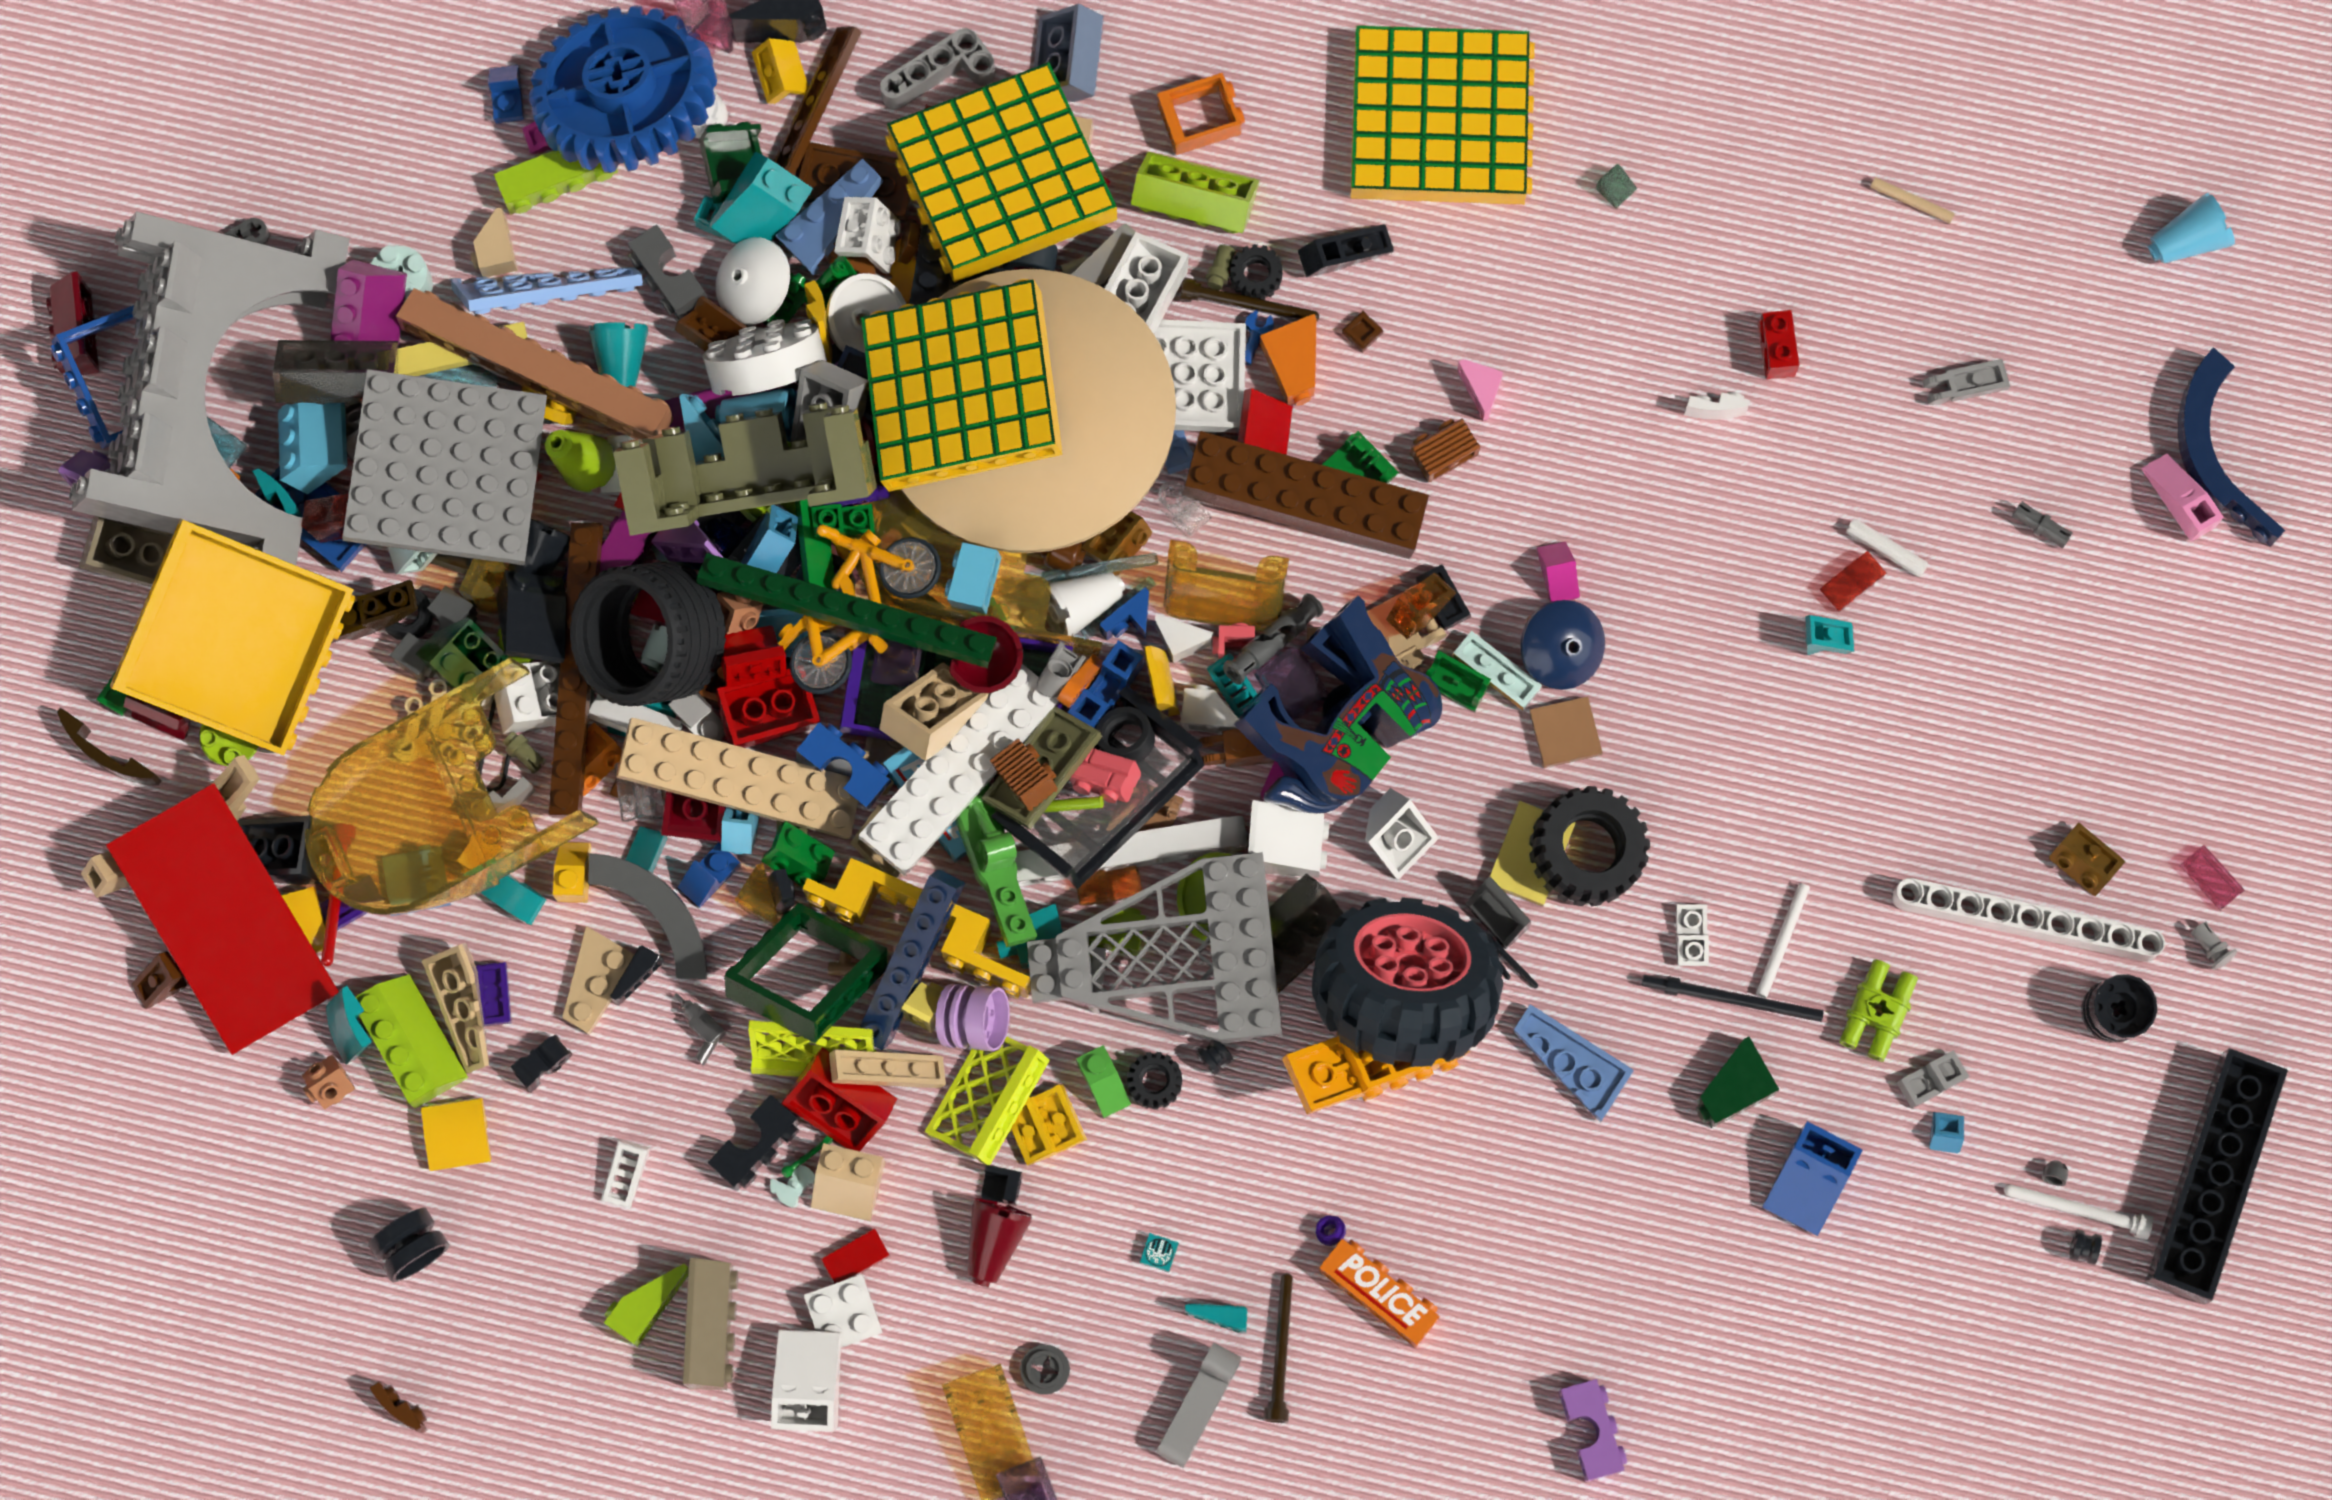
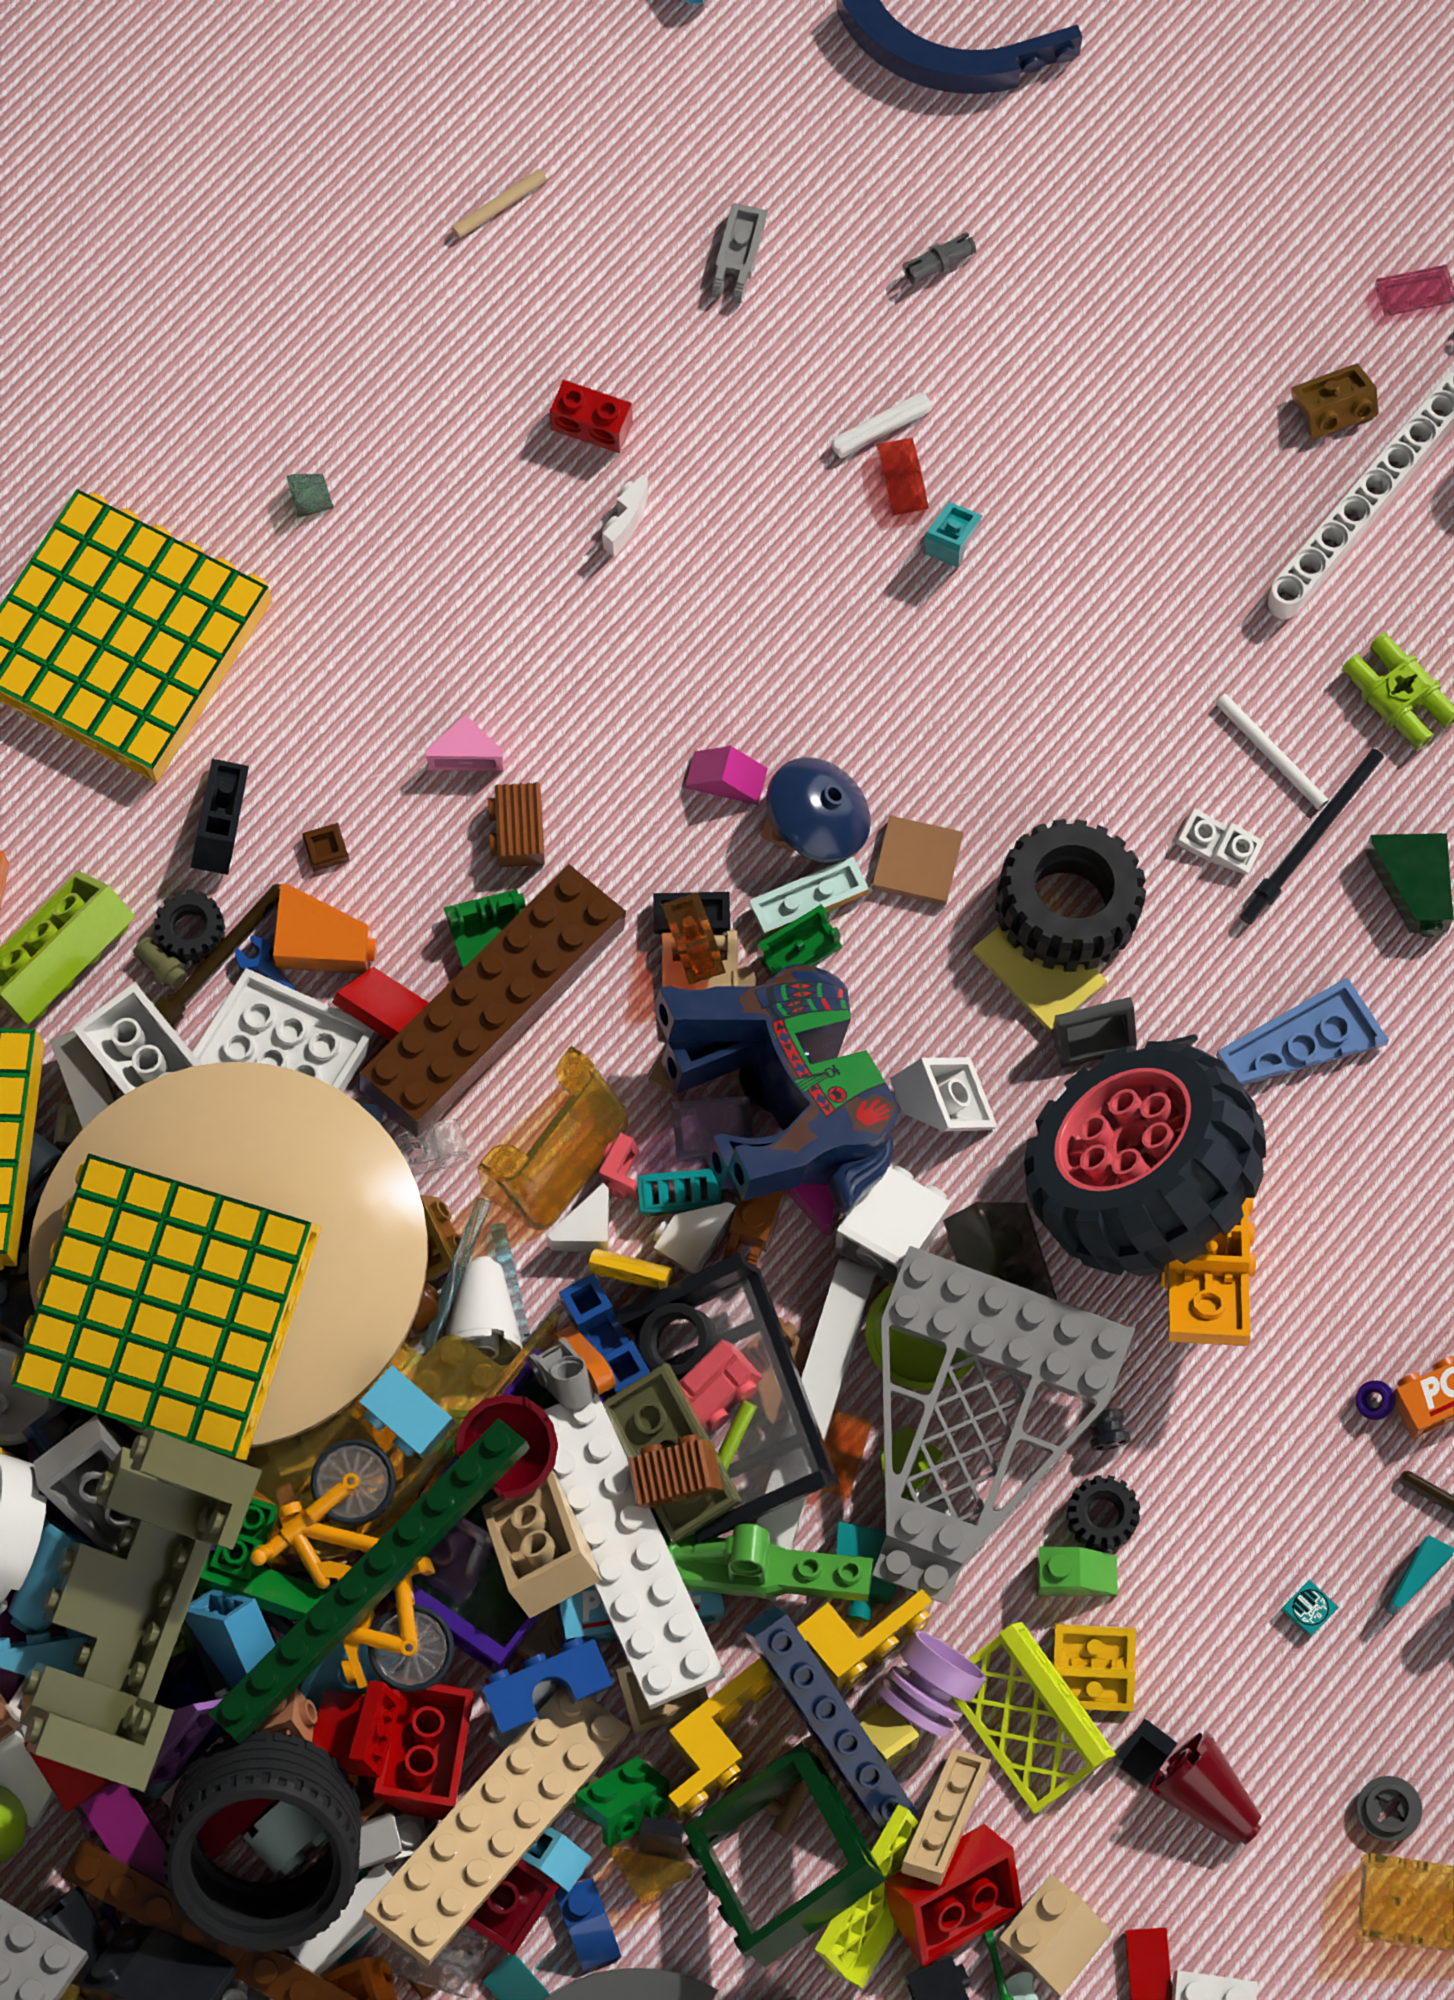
camera: 65 degrees left, 5 degrees down
(1132, 611) = (531, 1261): blue slope -> none
(1270, 641) = (646, 1119): dark grey piece -> none
(2183, 497) = (986, 104): bright pink slope -> none

